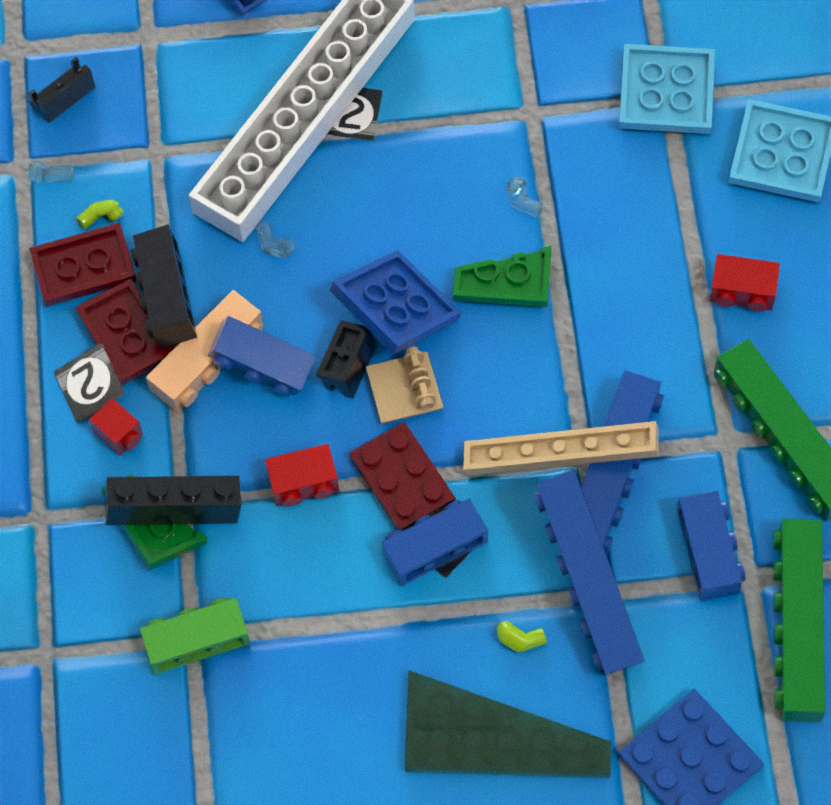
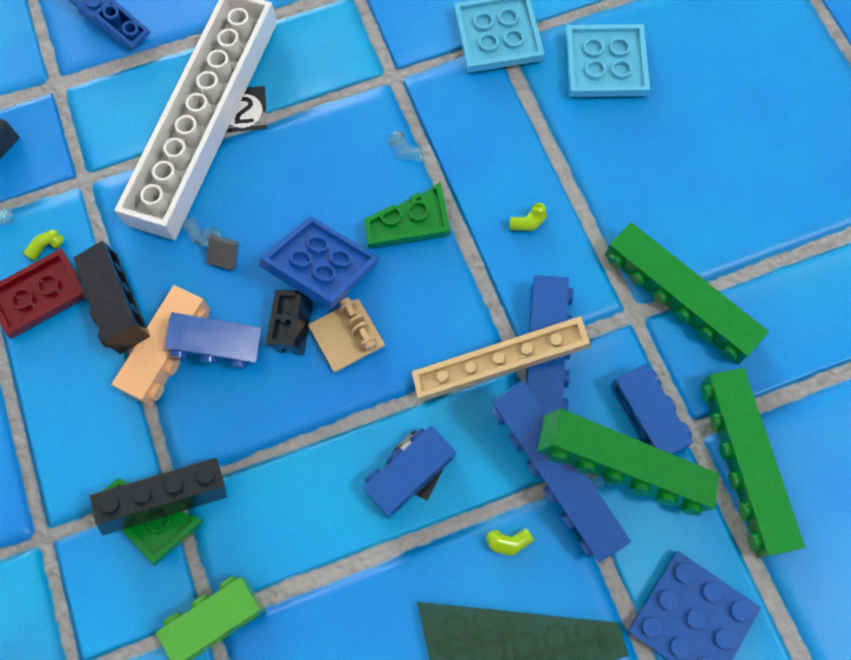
camera: 15 degrees left, 5 degrees up
(89, 382) = (63, 399): sticker -> none
(116, 427) = (95, 436): red brick -> none
(119, 325) = (76, 344): dark red plate -> none
(292, 267) = (222, 252): none -> dark grey tile
(302, 475) = (275, 439): red brick -> none
(402, 477) = (365, 418): dark red plate -> none
(641, 314) = (531, 221): none -> lime arm
(663, 580) = (627, 462): none -> green brick
(744, 282) = (610, 175): red brick -> none

